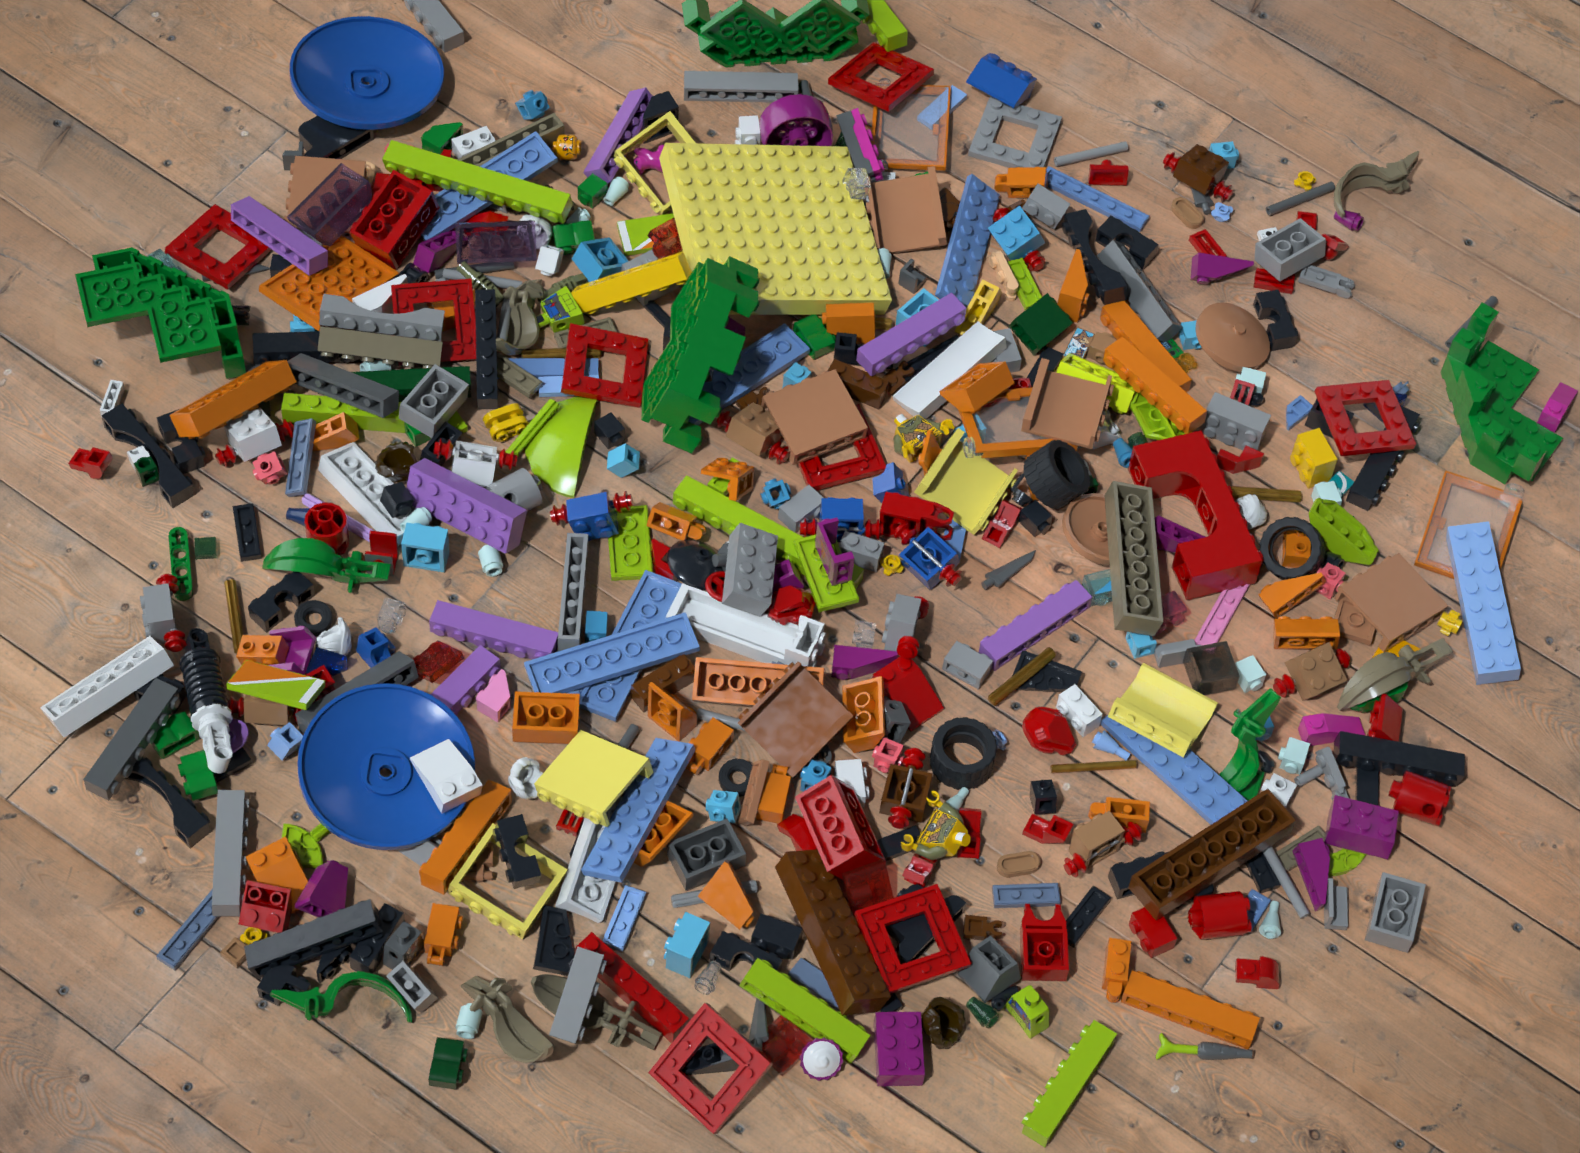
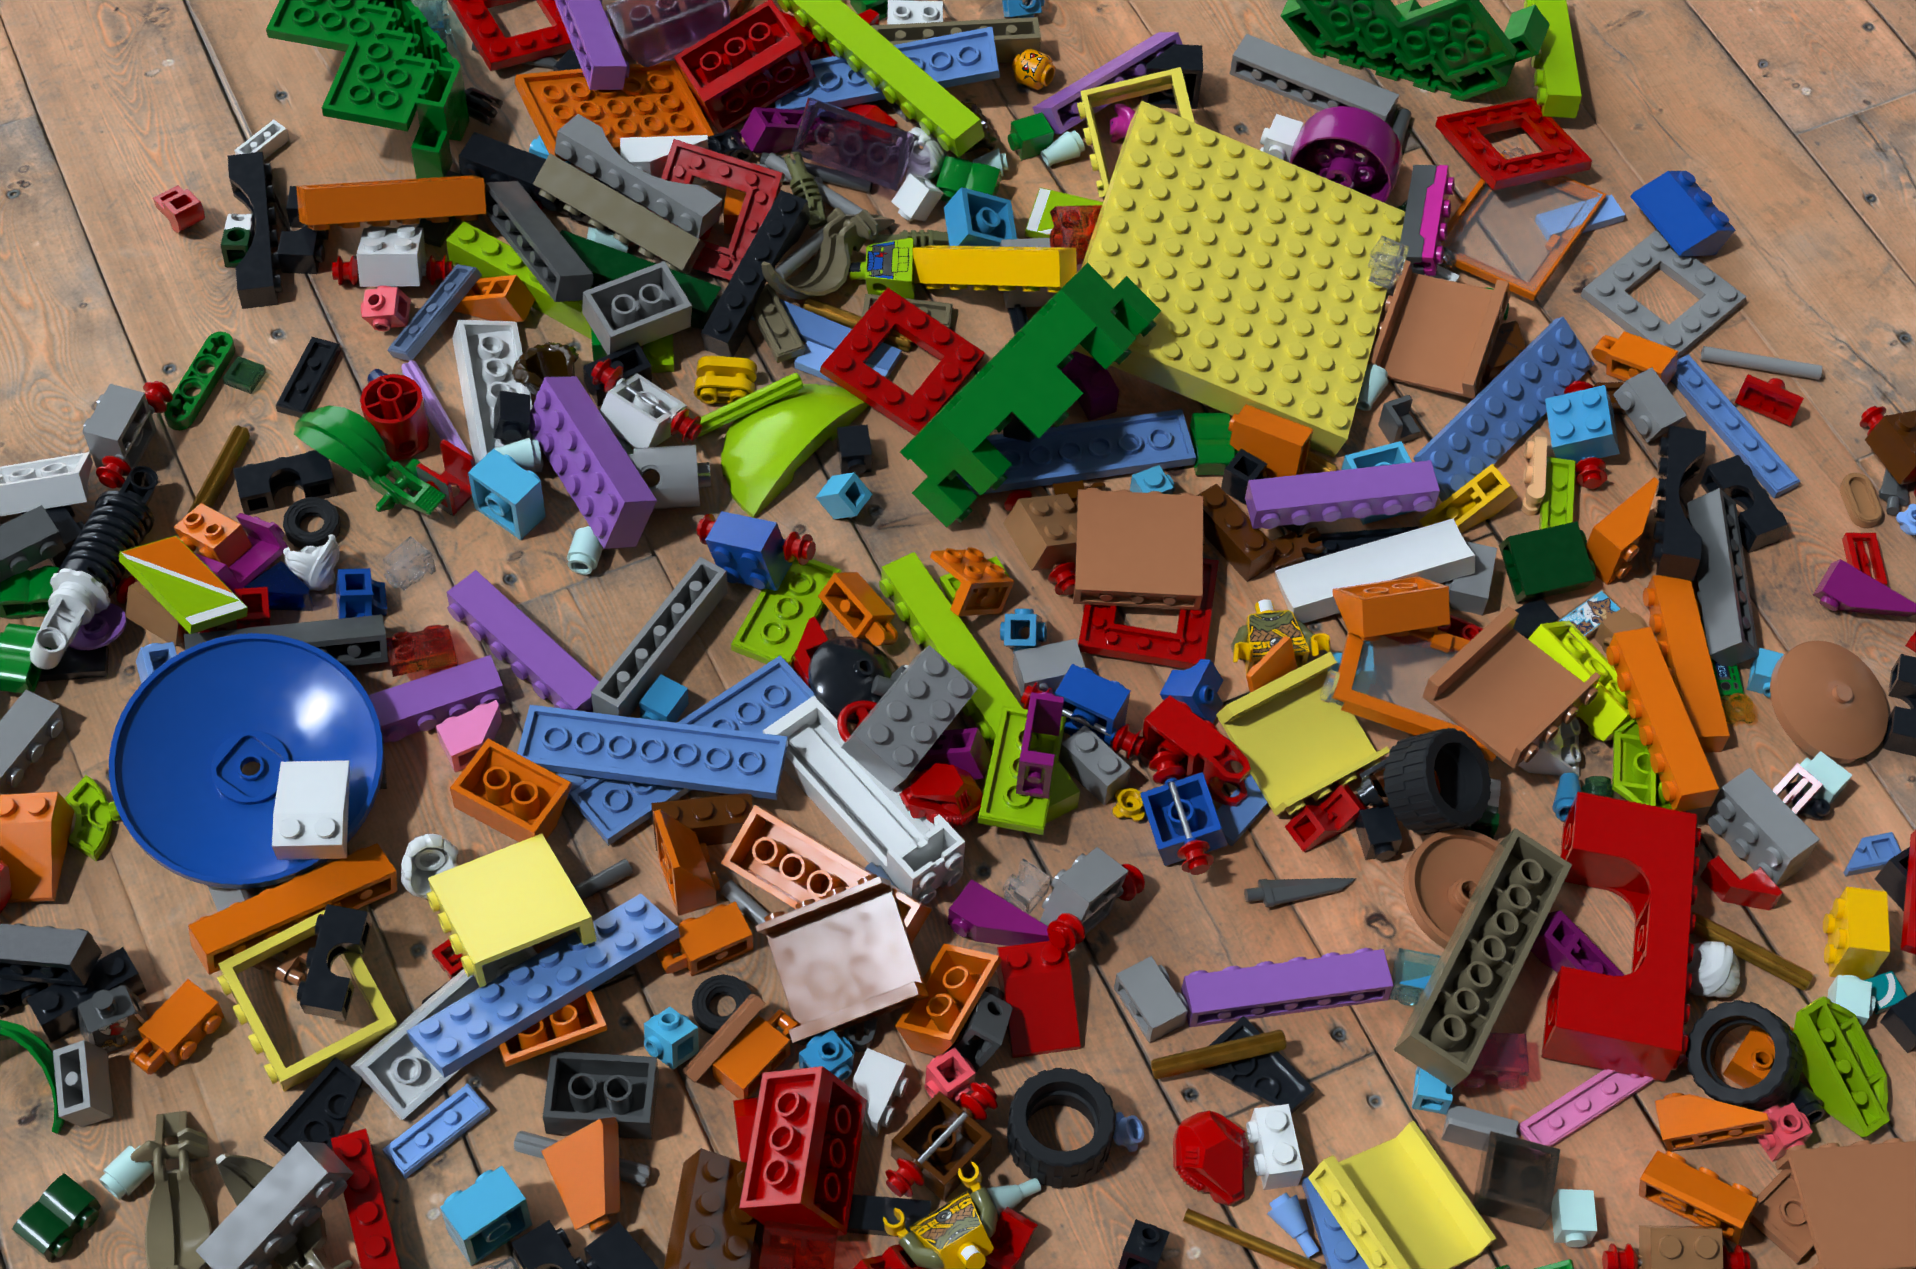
camera: 30 degrees right, 0 degrees up
(325, 890) = (65, 892): magenta slope -> none

